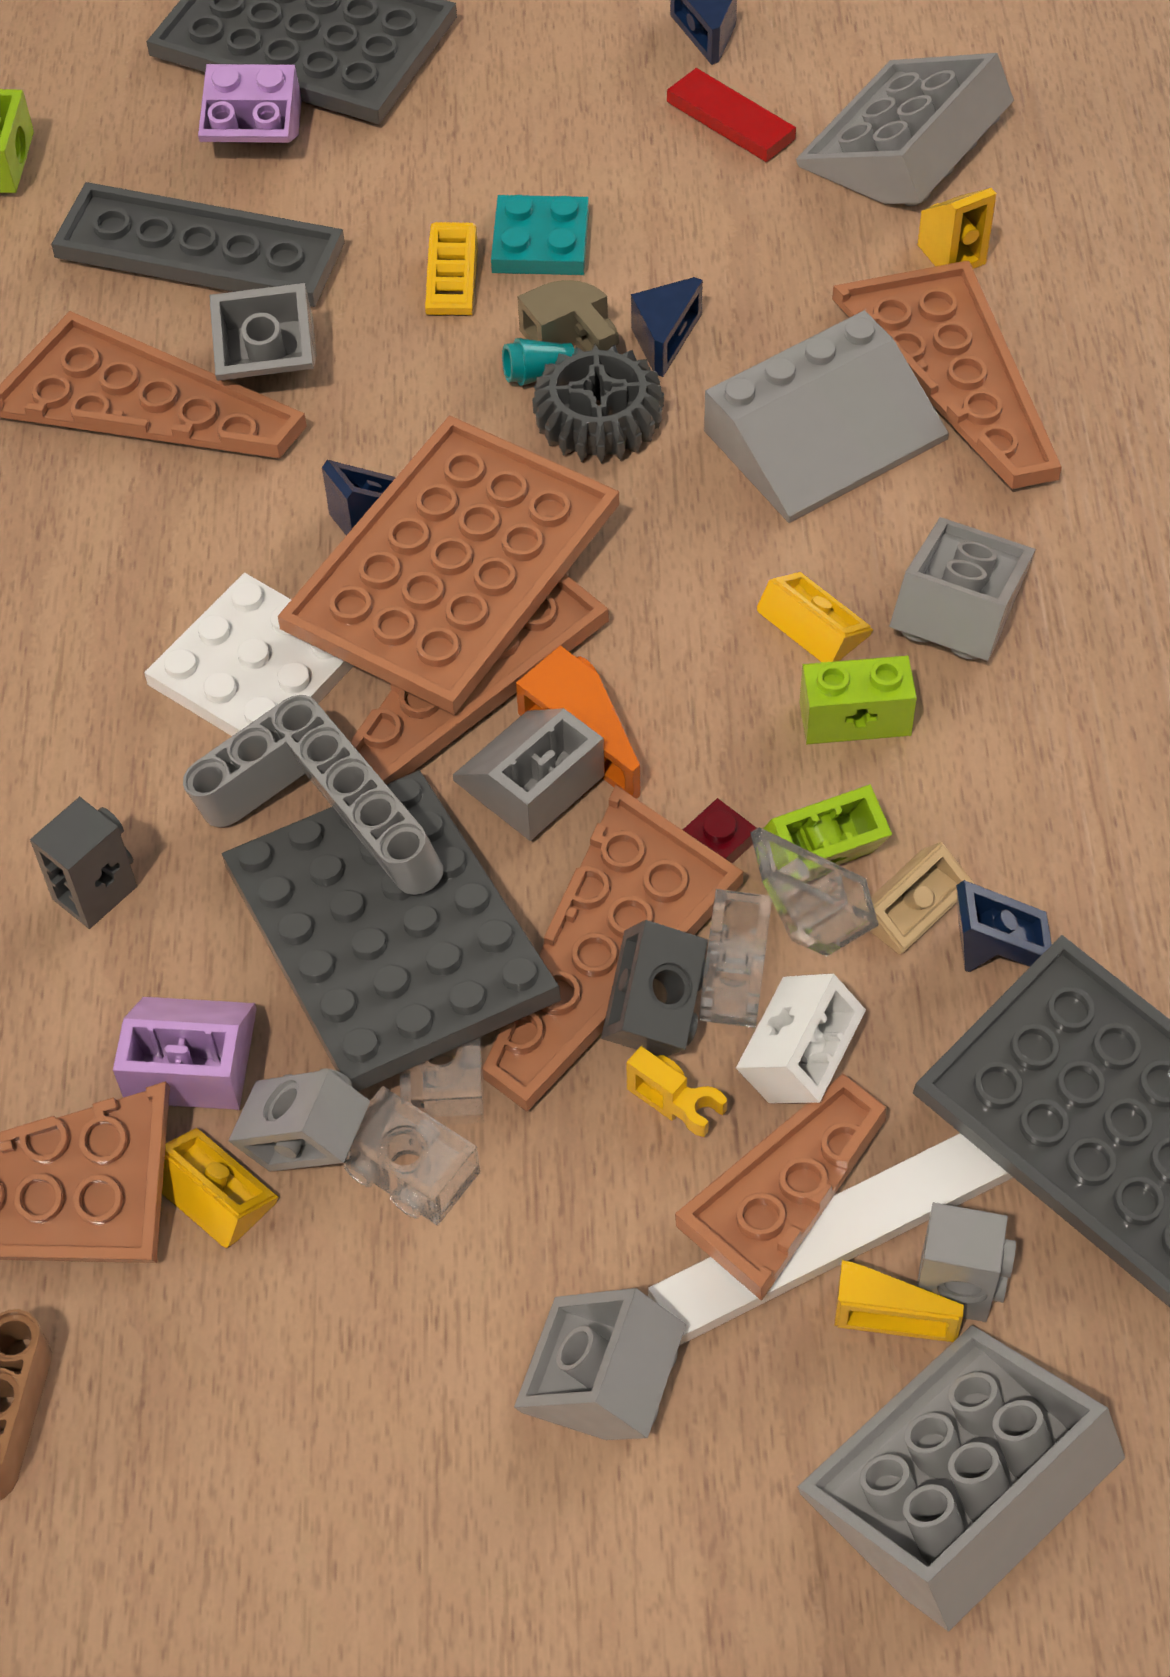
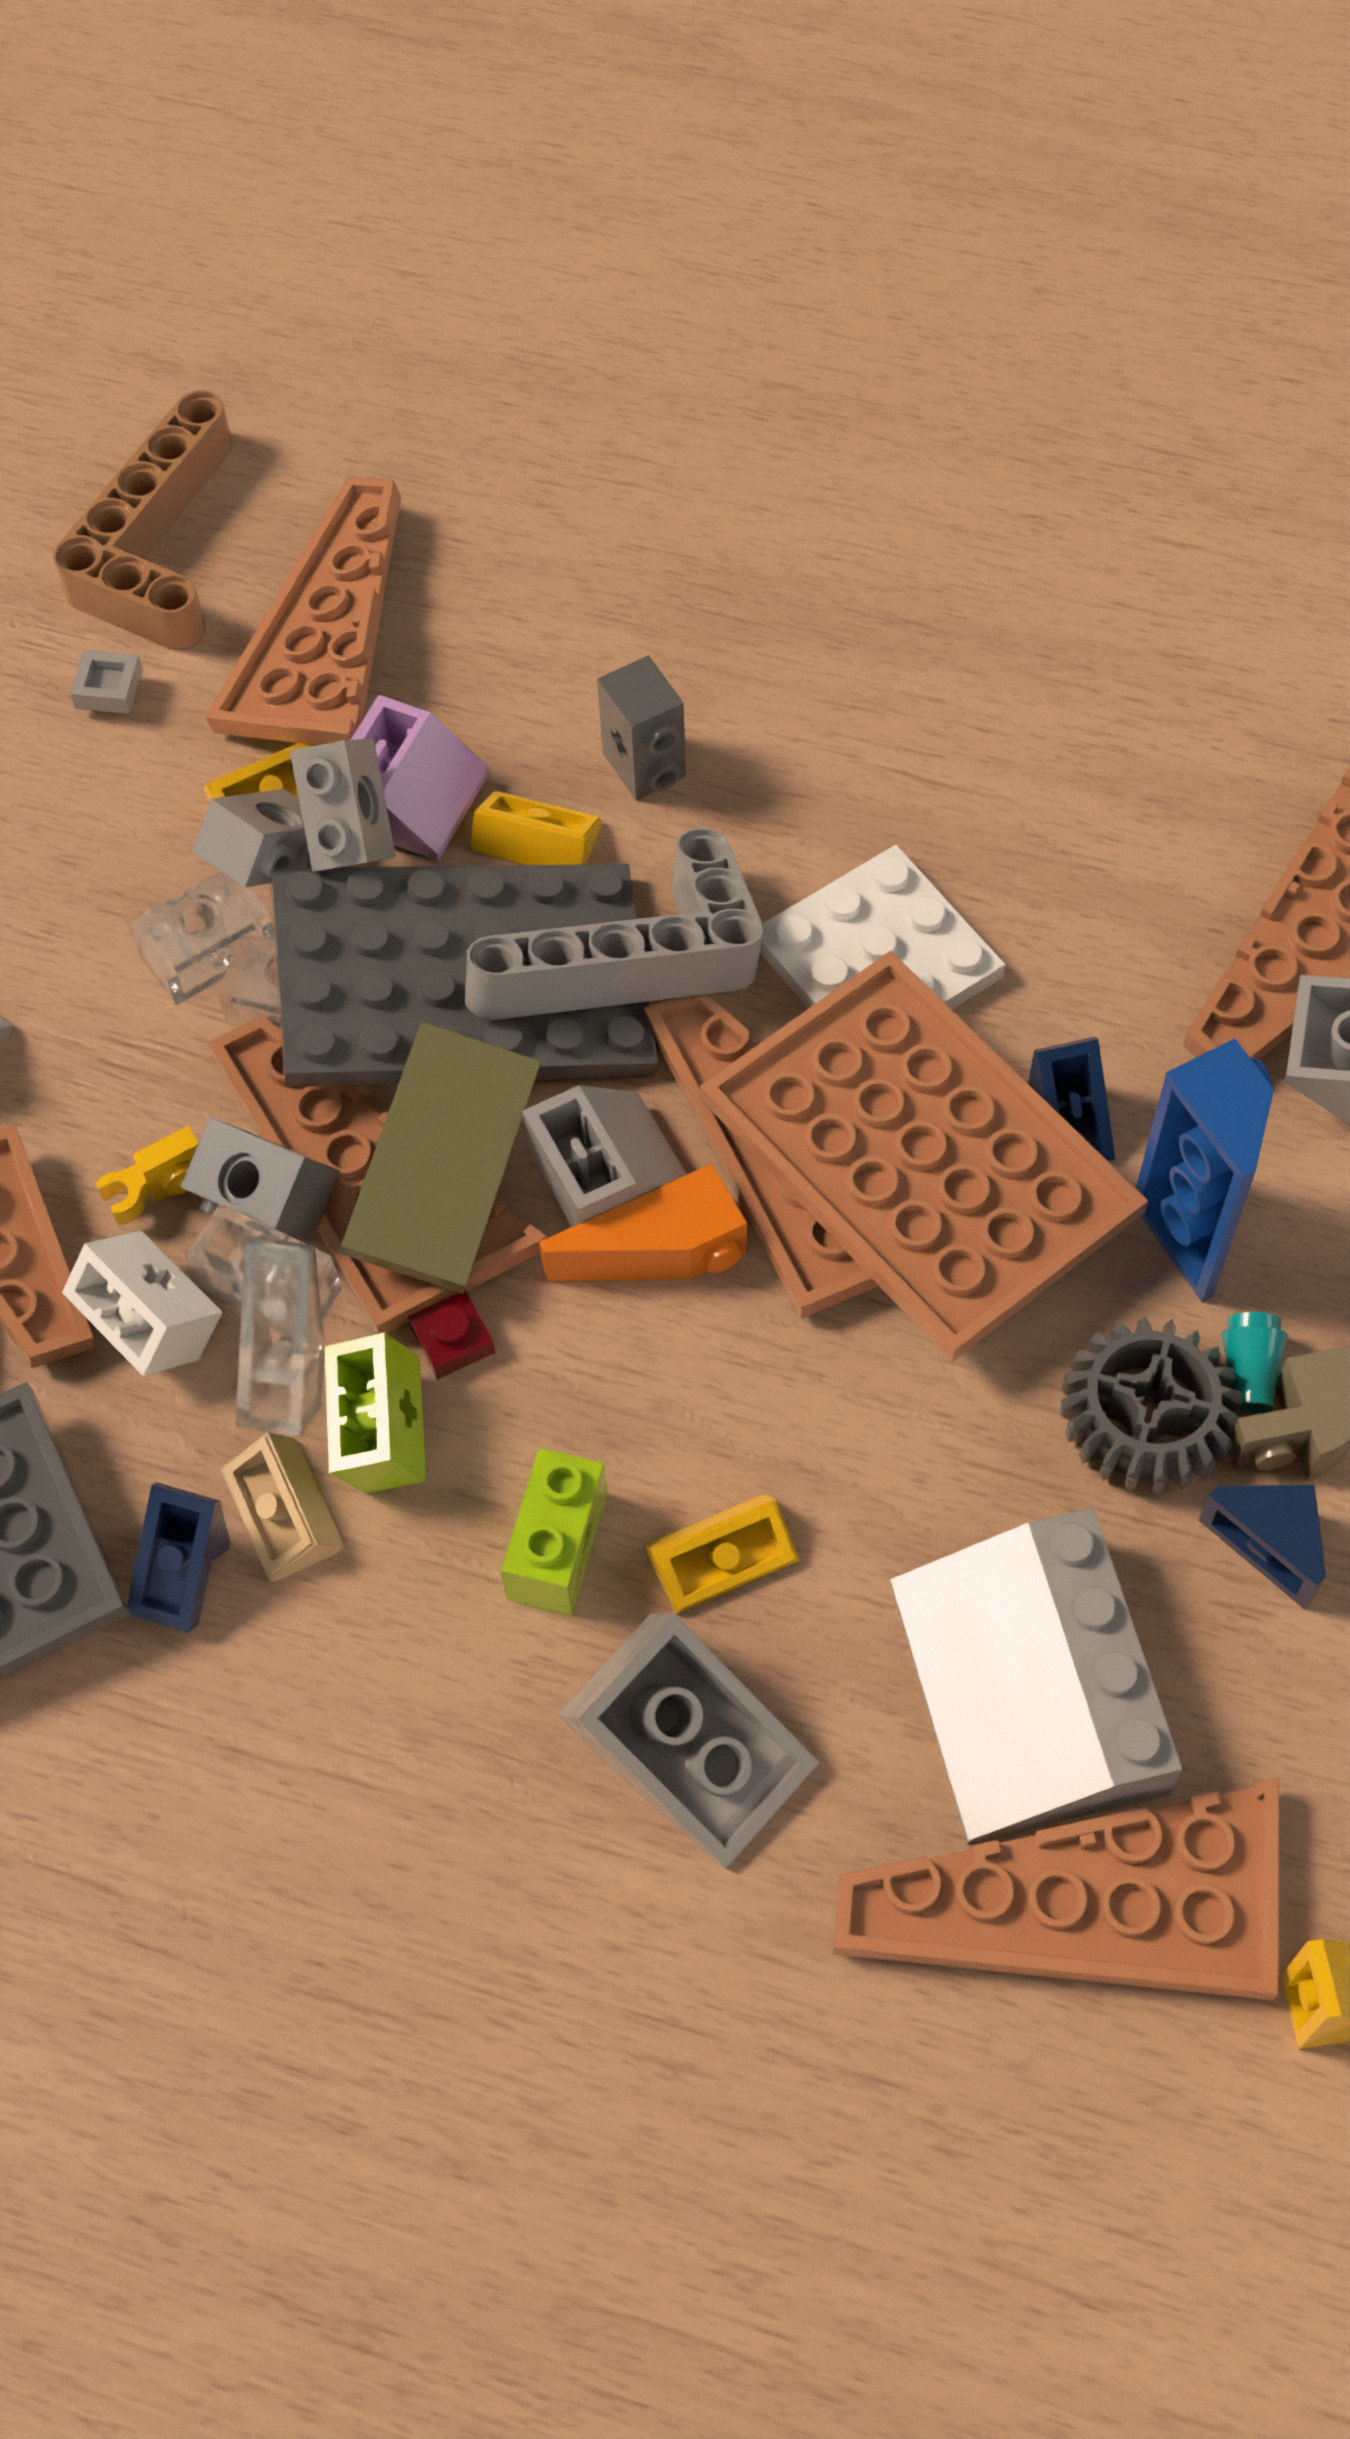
camera: 110 degrees right, 5 degrees up
(124, 1381) = (107, 682): none -> light grey plate
(200, 944) = (532, 831): none -> yellow slope
(263, 1033) = (342, 804): none -> light grey brick
(430, 350) = (1204, 1158): none -> blue slope
(585, 856) = (440, 1158): none -> olive tile

